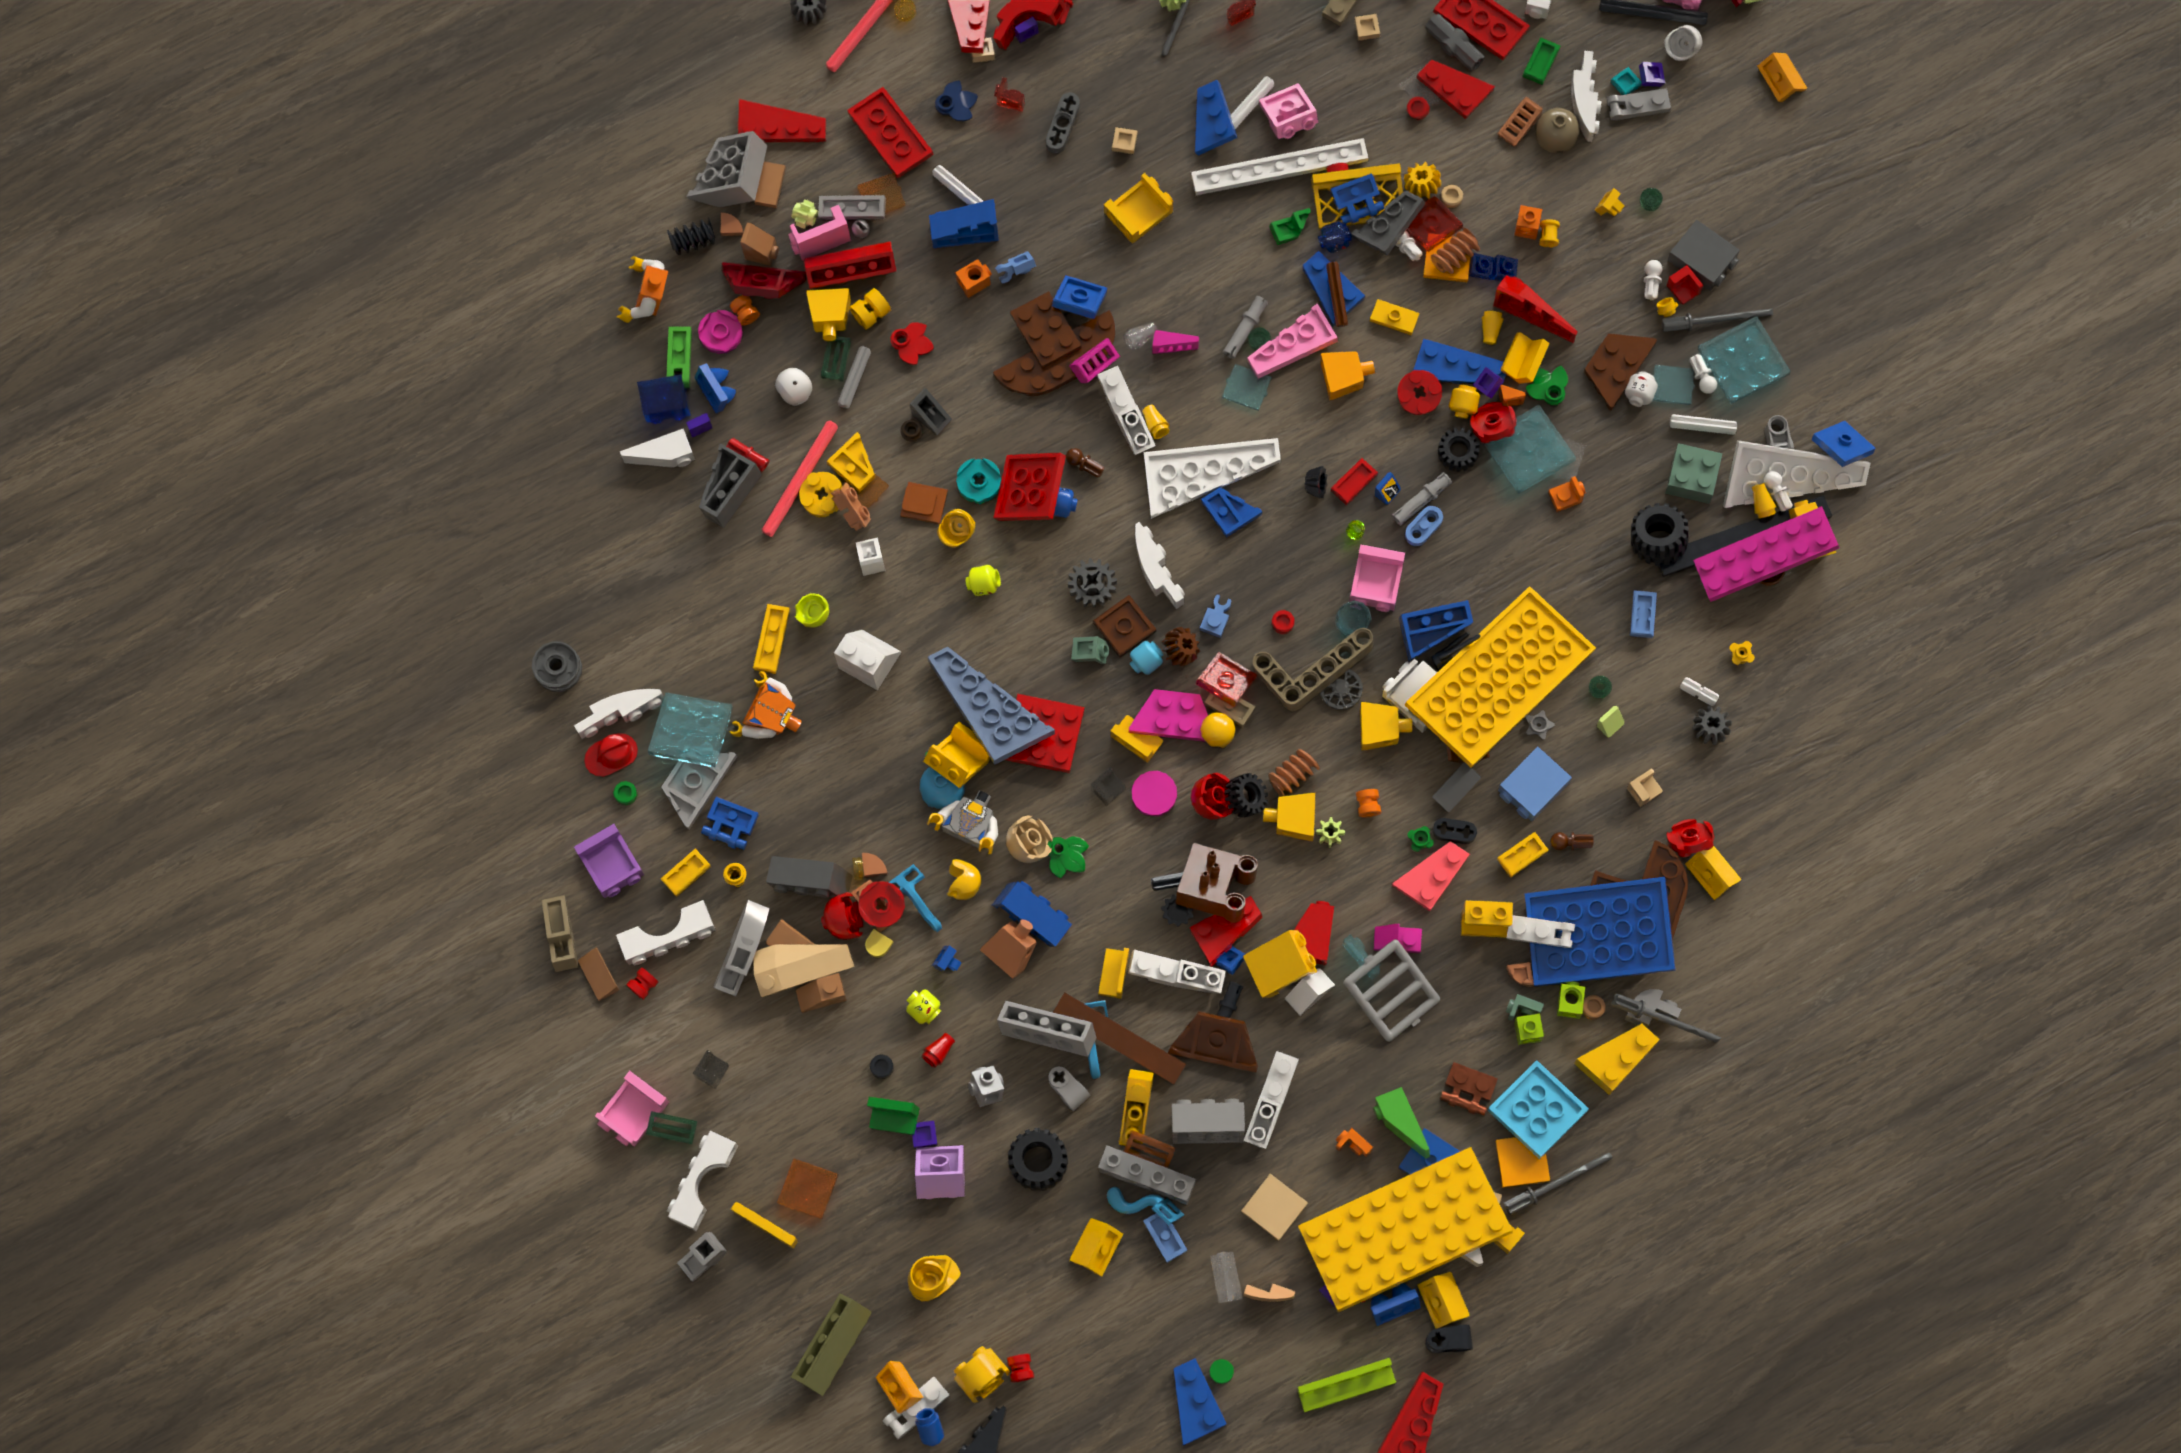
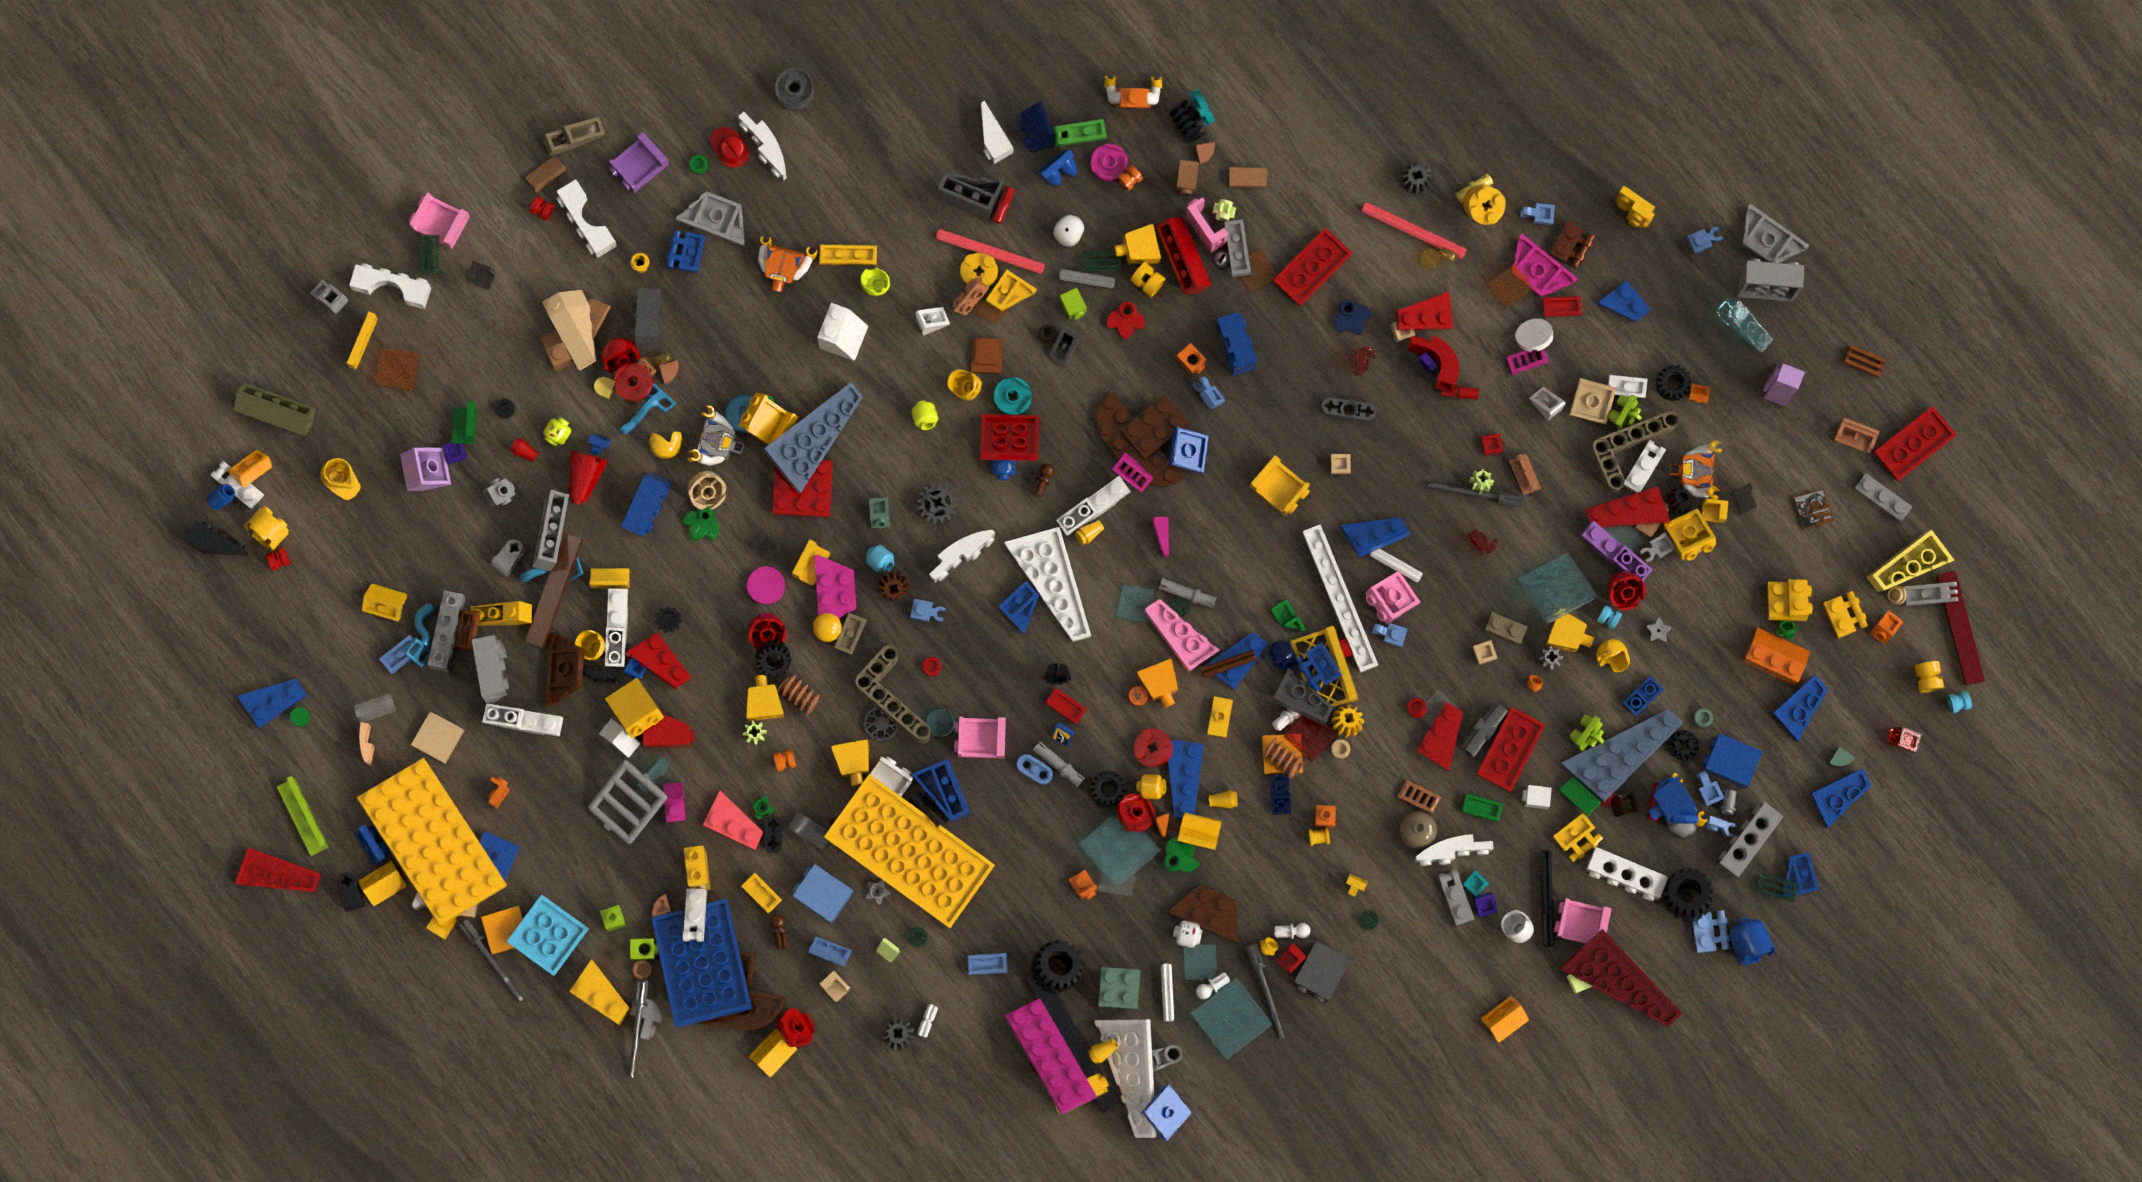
camera: 70 degrees right, 5 degrees up
(677, 214) = (1202, 107): none -> teal plate
(685, 872) = (639, 224): yellow plate -> none
(690, 729) = (757, 204): clear light blue plate -> none
(699, 425) = (1021, 161): dark purple tile -> none
(731, 171) = (1251, 143): light grey wedge -> none
(742, 948) = (582, 280): light grey slope -> none
(760, 280) = (1156, 185): dark red wing -> none
(780, 124) = (1303, 170): red wing -> none
(883, 395) = (1073, 304): none -> lime brick
(955, 186) = (1272, 333): white axle -> none
(984, 981) = (583, 475): none -> red cone
(1011, 947) = (614, 491): nougat torso -> none
(1033, 1139) = (440, 528): black tyre -> none
(1124, 626) = (906, 537): reddish brown tile -> none
(1138, 336) = (1164, 506): clear cone -> none
(1190, 1003) = (592, 643): none -> yellow hair
(1208, 880) = (694, 639): reddish brown piece -> none
(1226, 679) = (871, 627): clear red tile -> none
(1329, 119) = (1392, 634): none -> medium blue plate
(1353, 529) = (1021, 713): clear neon green hinge -> none
(1355, 400) = (1138, 696): none -> orange tile
(1400, 1119) = (525, 823): bright green slope -> none
(1412, 684) = (892, 780): white slope -> none
(1470, 1082) = (563, 880): copper plate -> none
(1488, 382) = (1169, 803): dark purple tile -> none
(1524, 303) = (1252, 820): red wedge -> none
(1525, 1004) = (631, 916): sand green bracket -> none
(1603, 786) = (830, 951): none -> medium blue plate
(1737, 658) = (967, 1056): yellow plate -> none
(1773, 481) = (1121, 1056): white axle -> none

